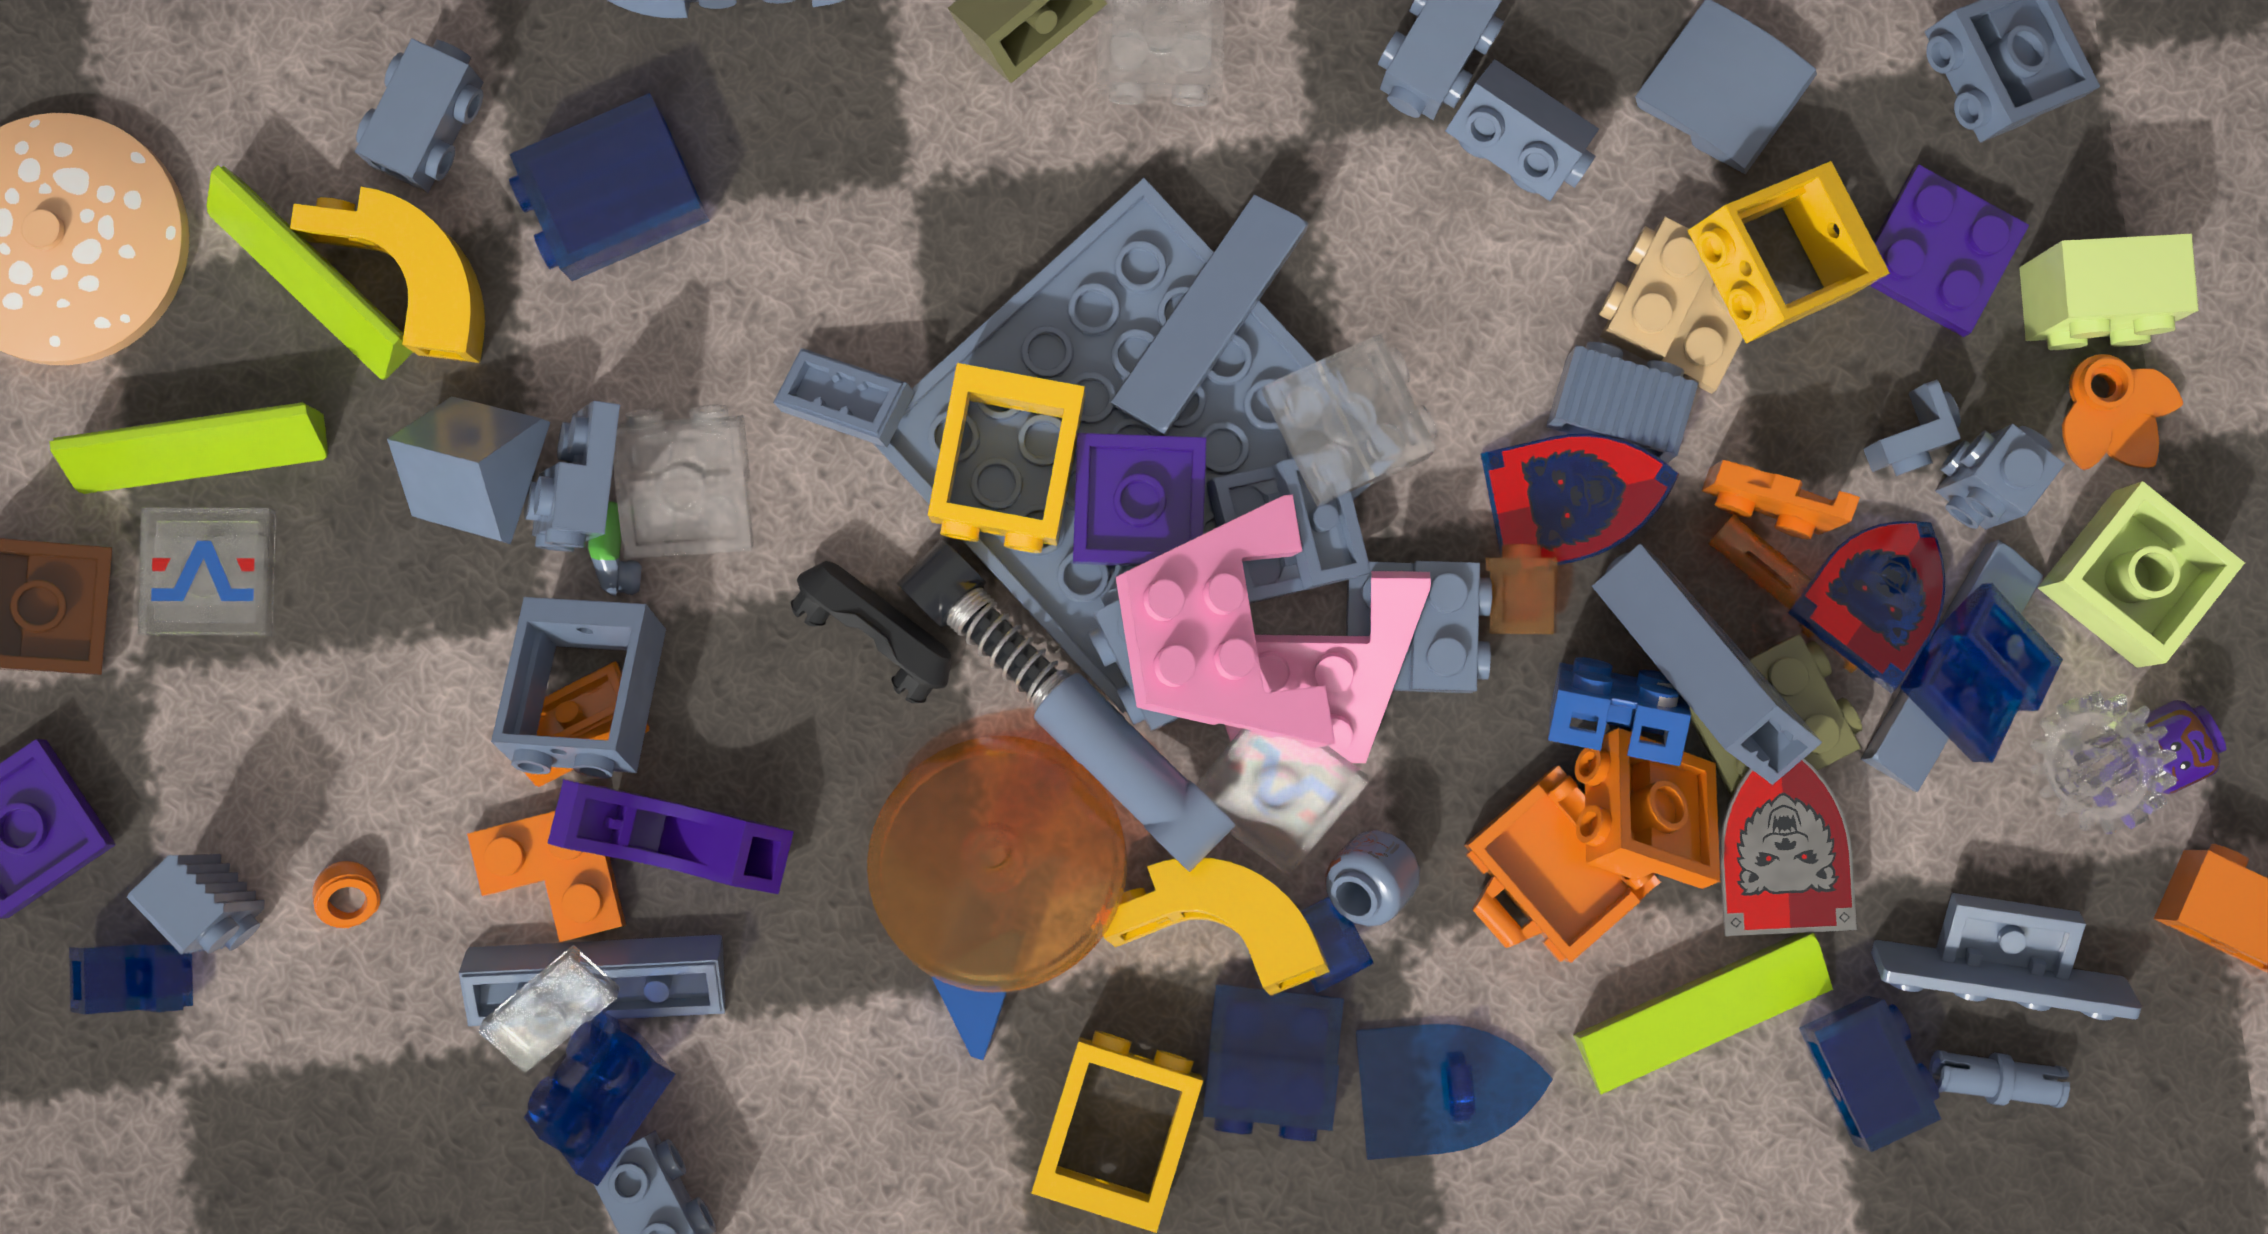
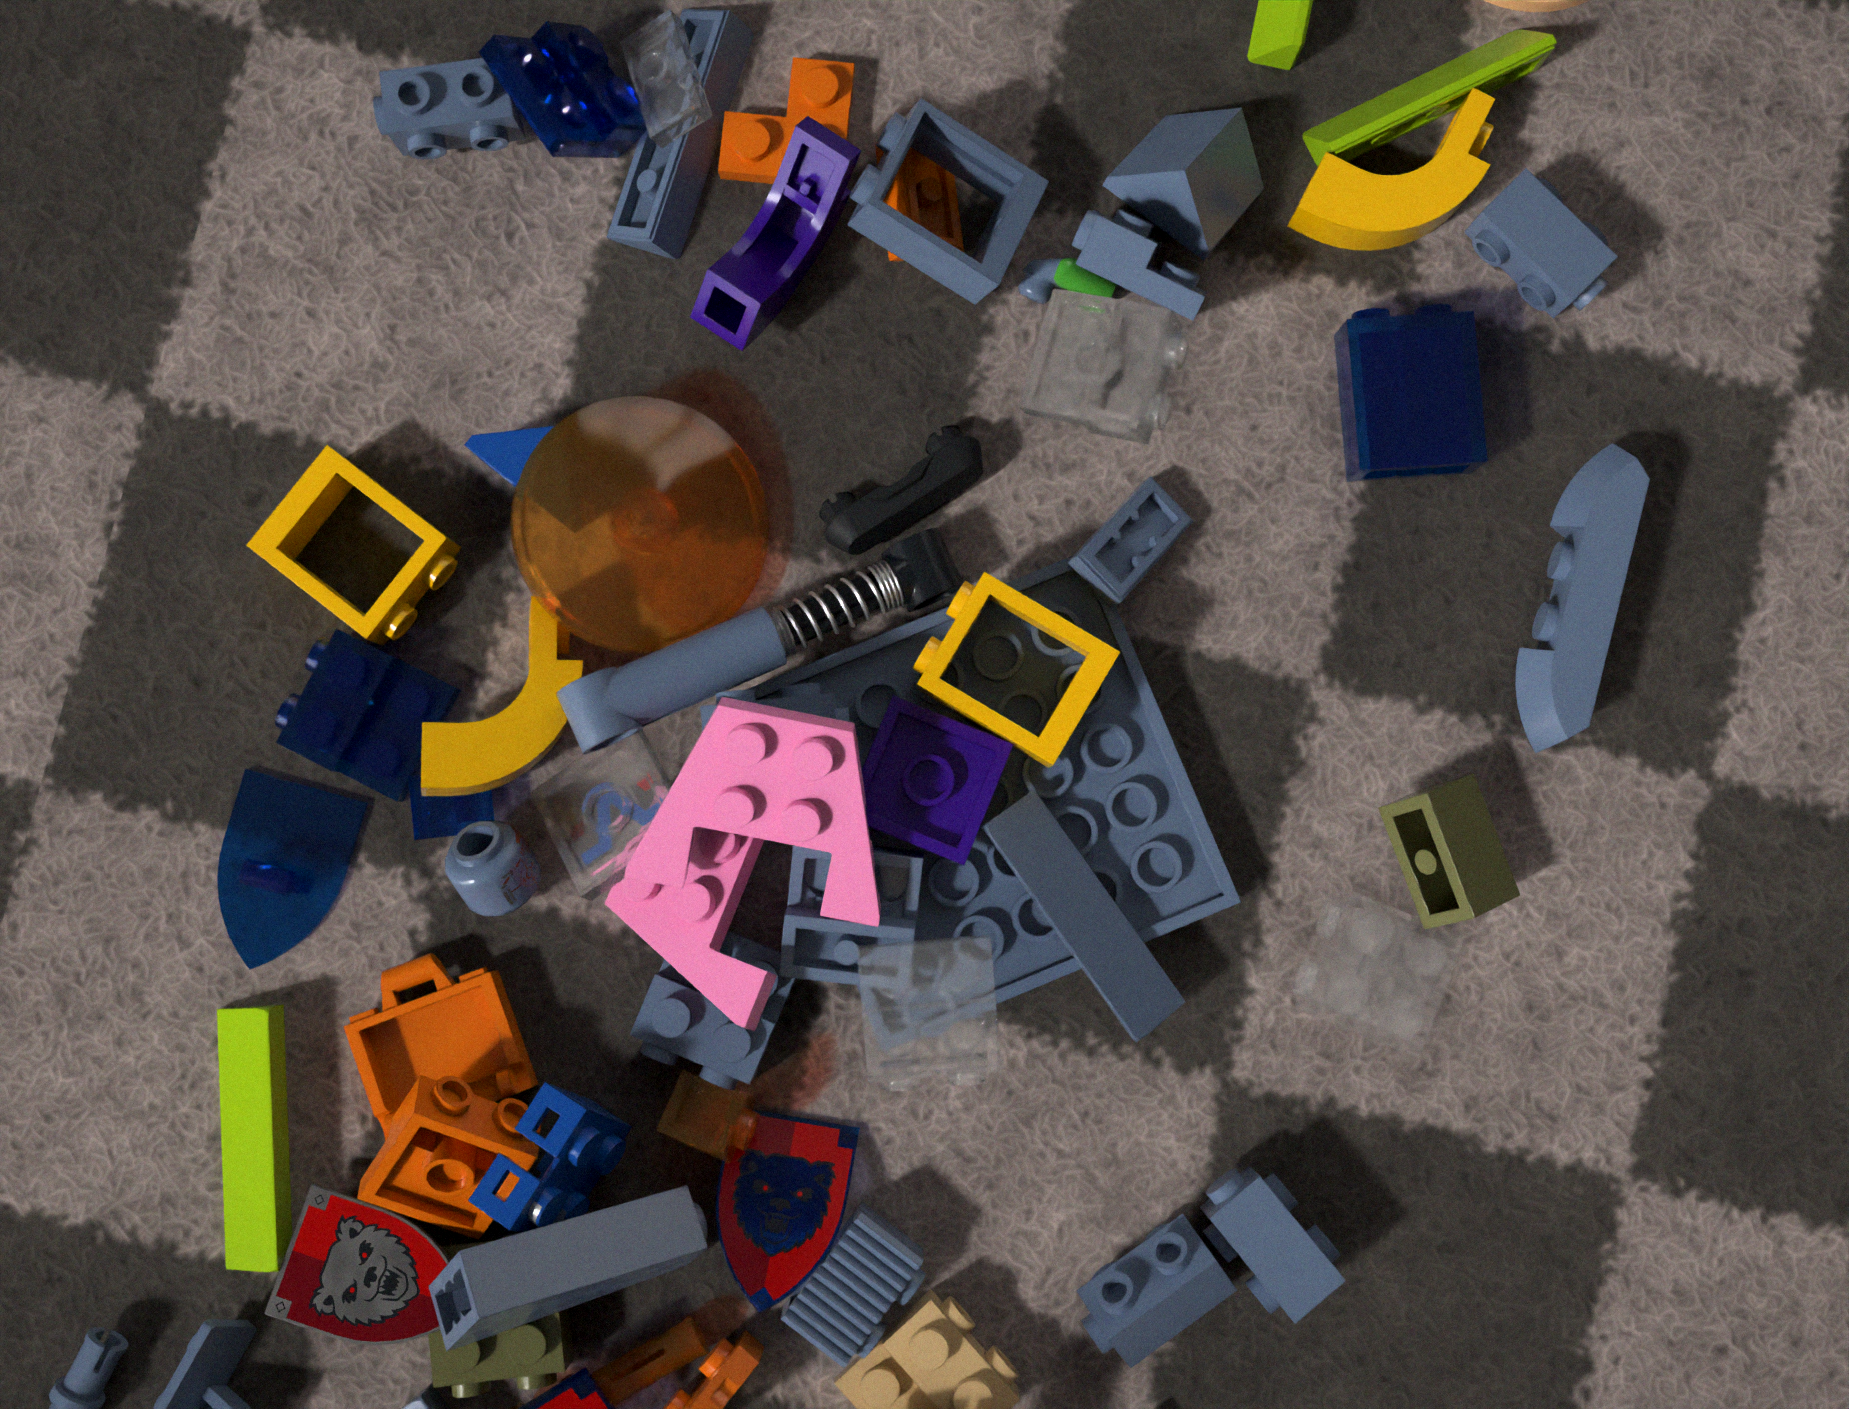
camera: 115 degrees right, 0 degrees up
(1872, 1072) = (129, 1275): clear blue brick -> none

